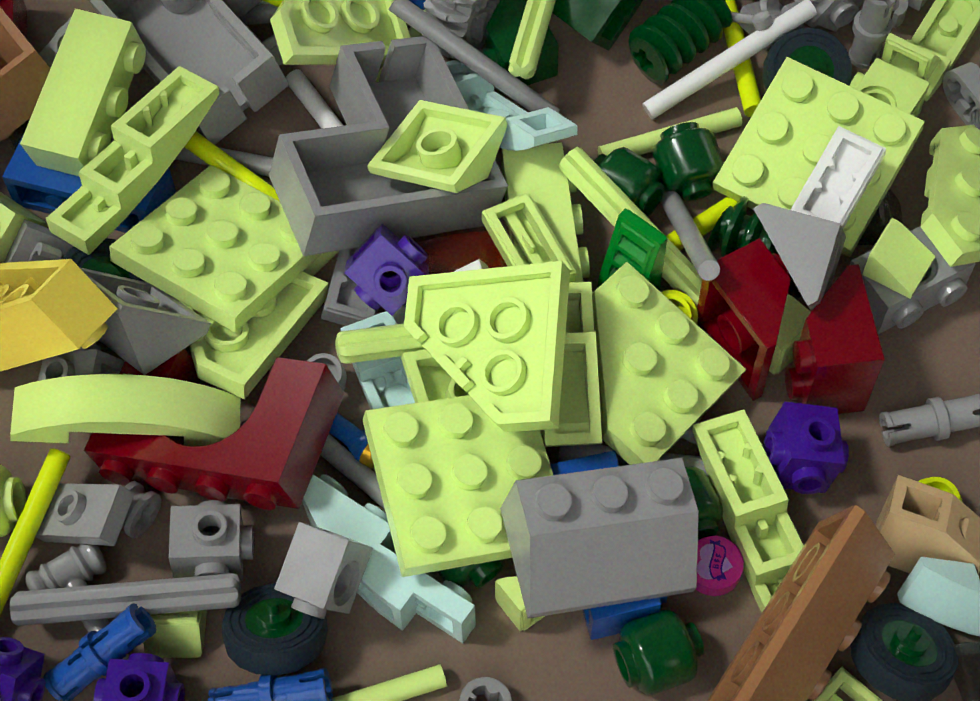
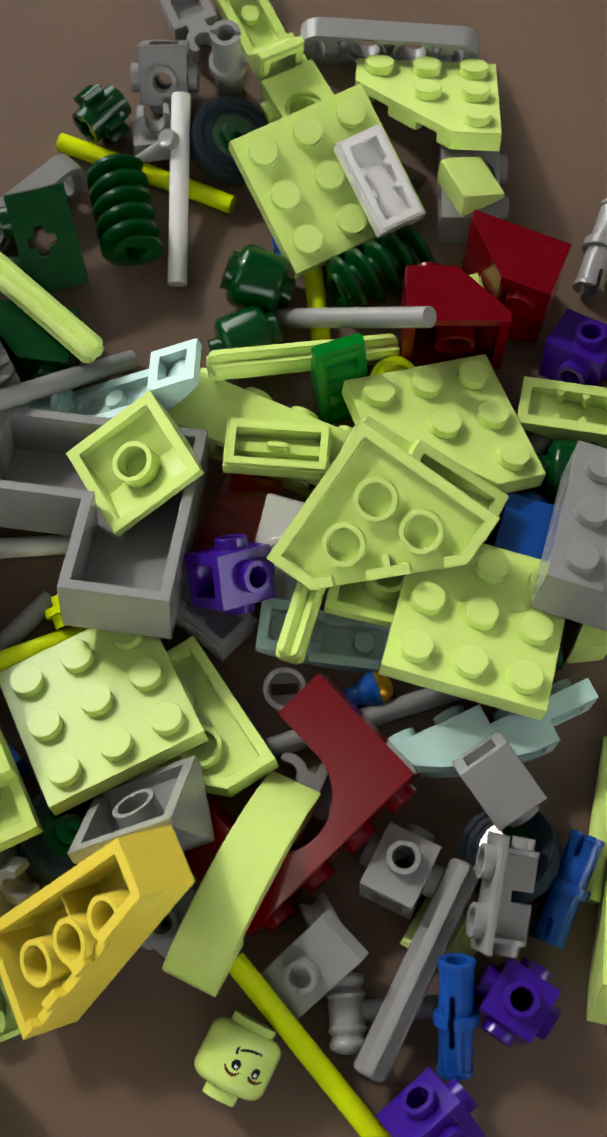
camera: 60 degrees left, 10 degrees up
(197, 629) = (494, 915): none -> light grey hinge
(645, 142) = (211, 291): yellowish green bar -> none
(806, 246) = (449, 235): light grey slope -> none

